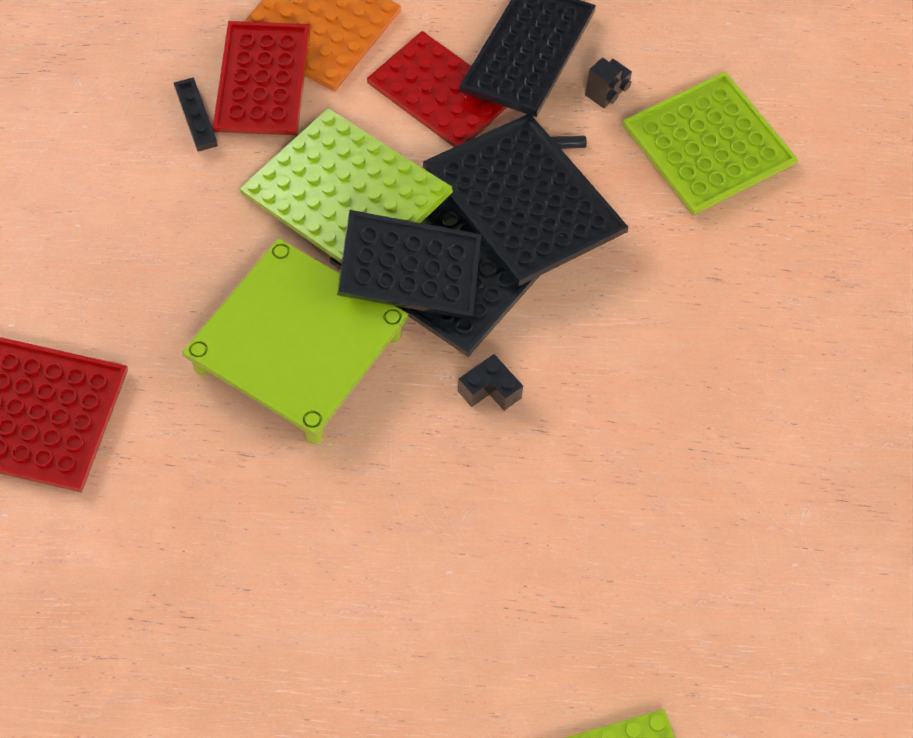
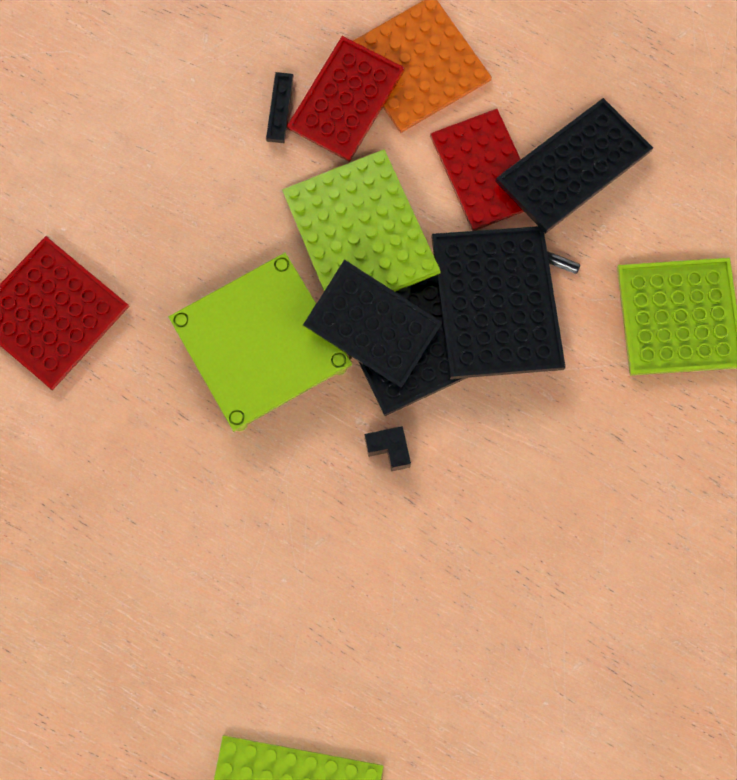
camera: 30 degrees right, 15 degrees up
(607, 81) = (624, 223): black brick -> none

